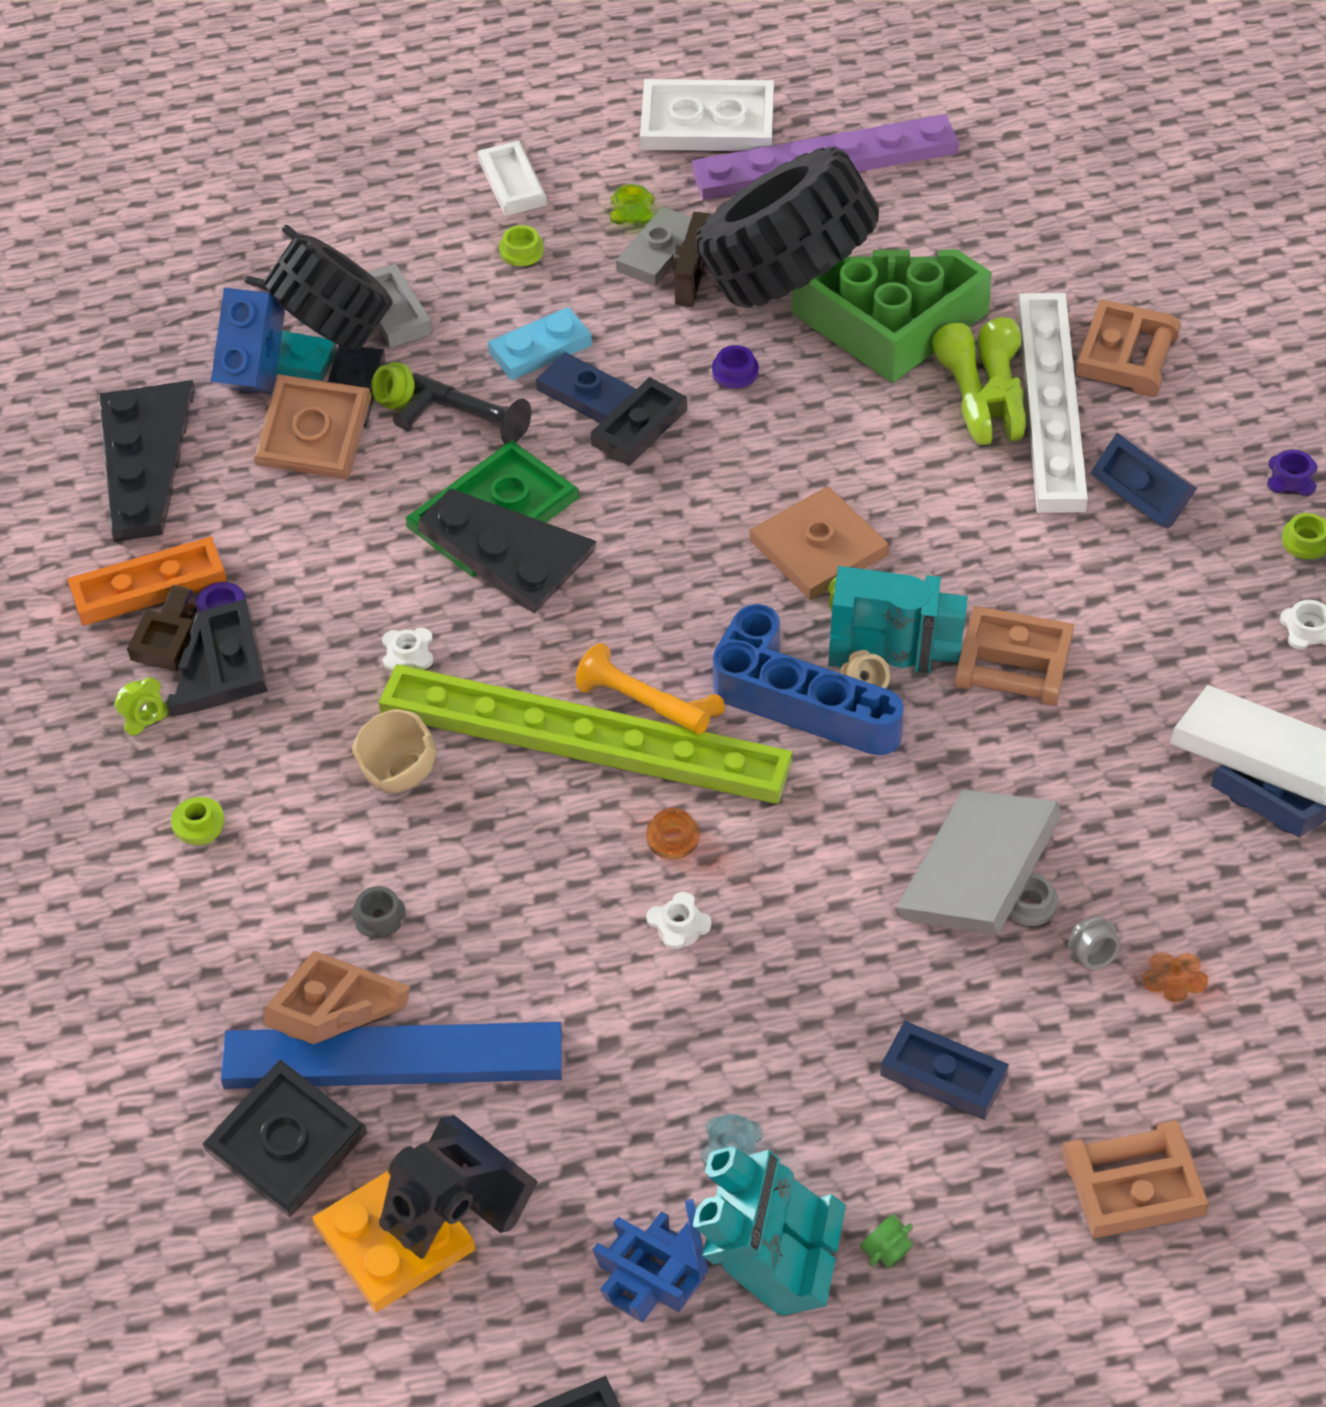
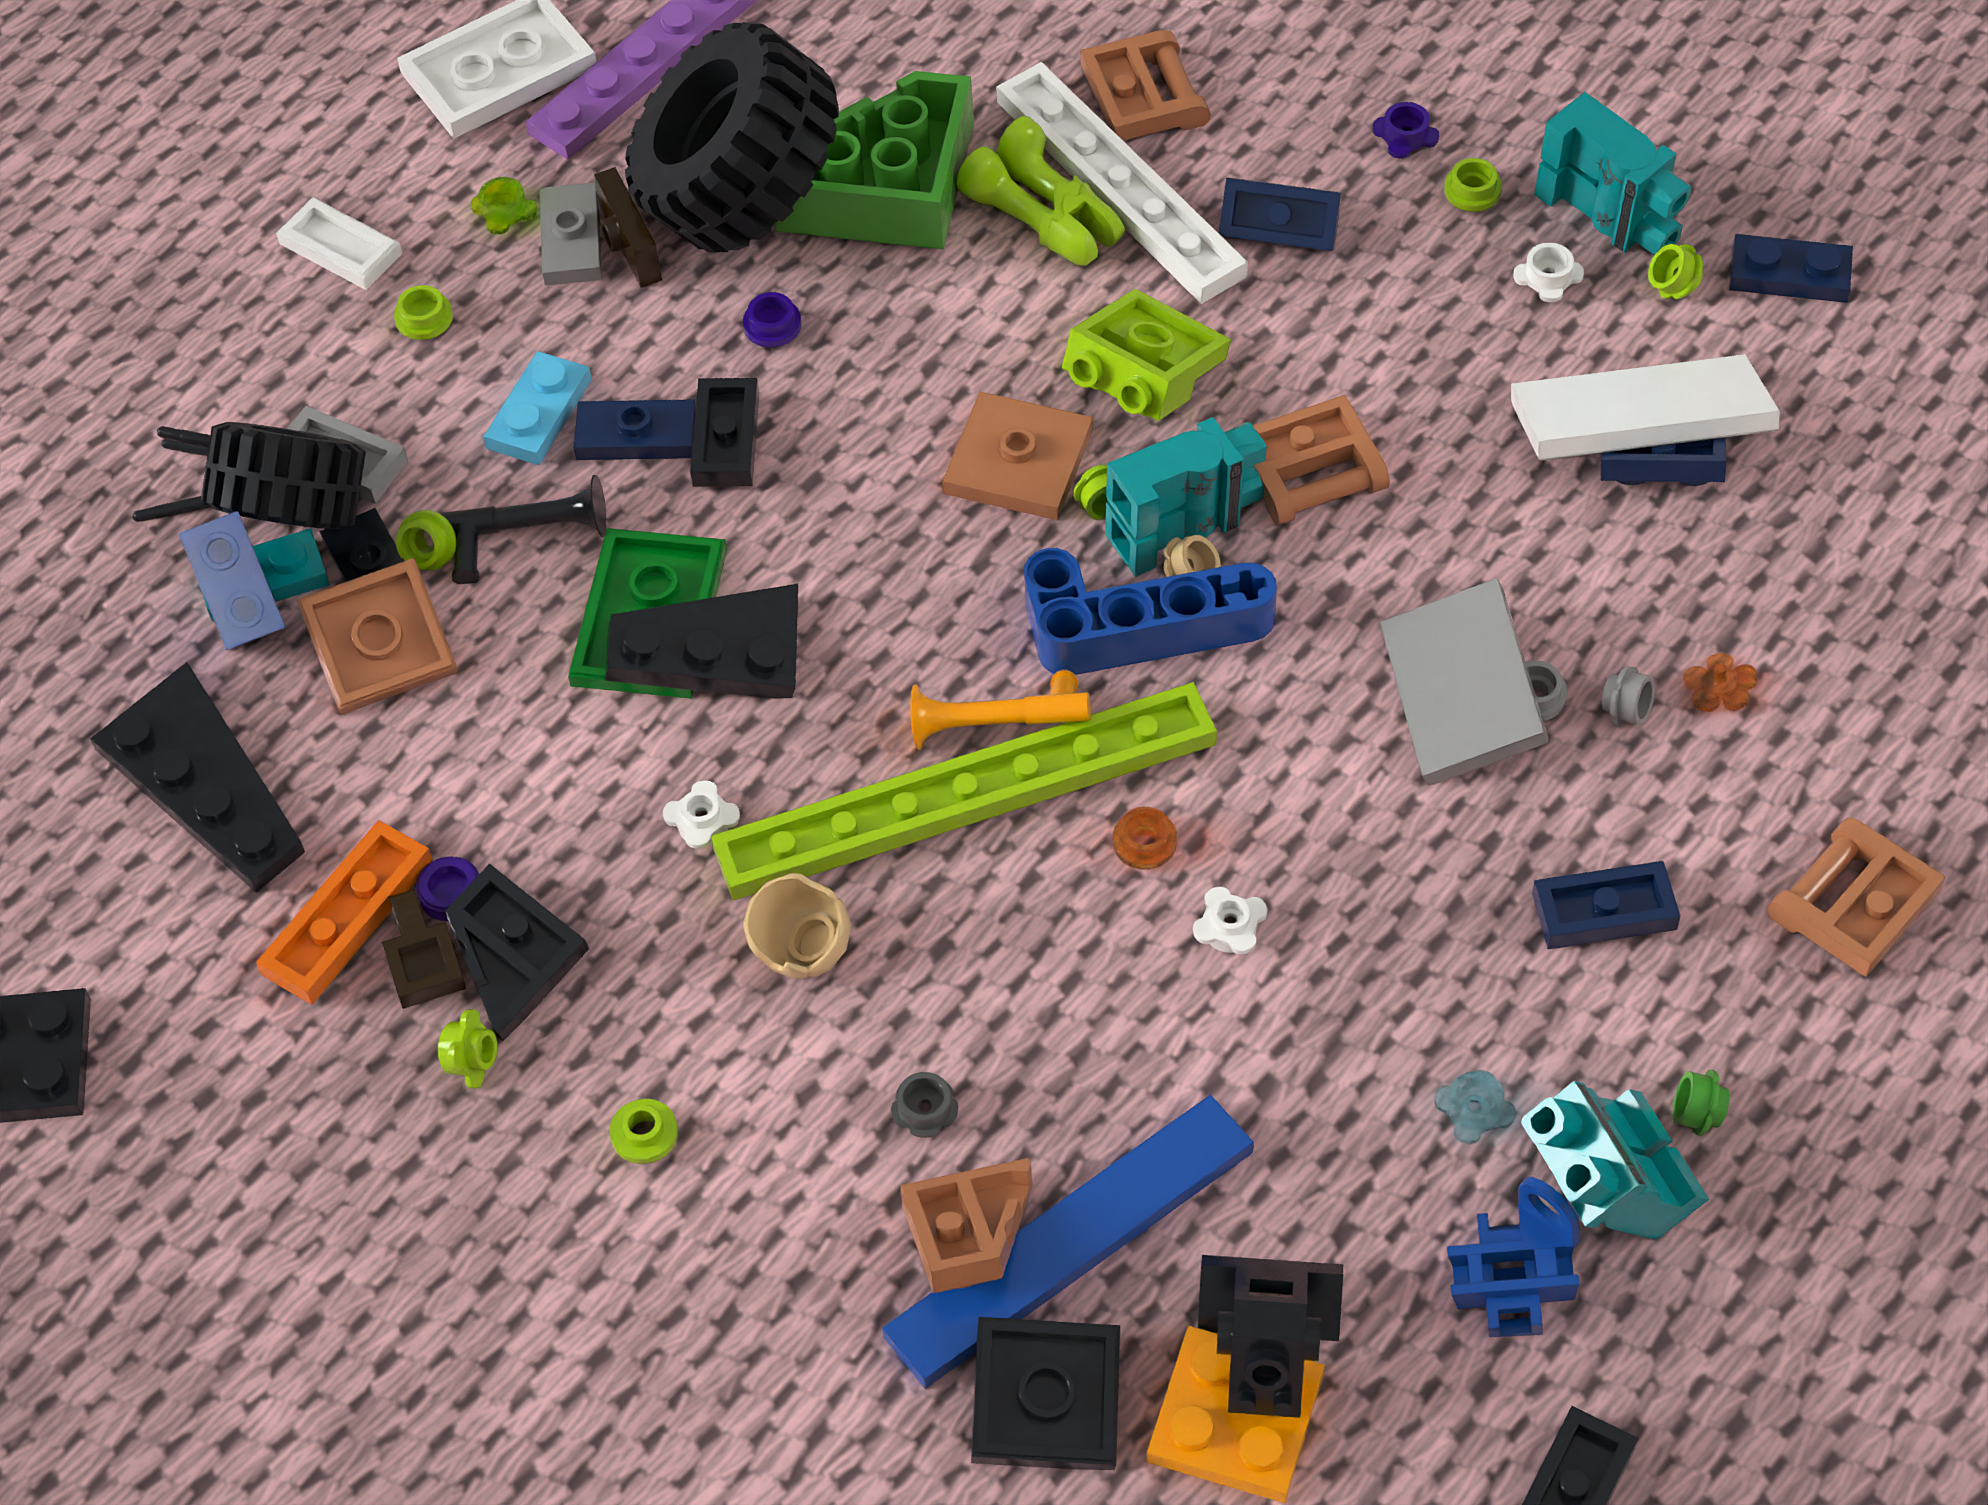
camera: 35 degrees left, 5 degrees up
(958, 520) = (1143, 354): none -> lime plate

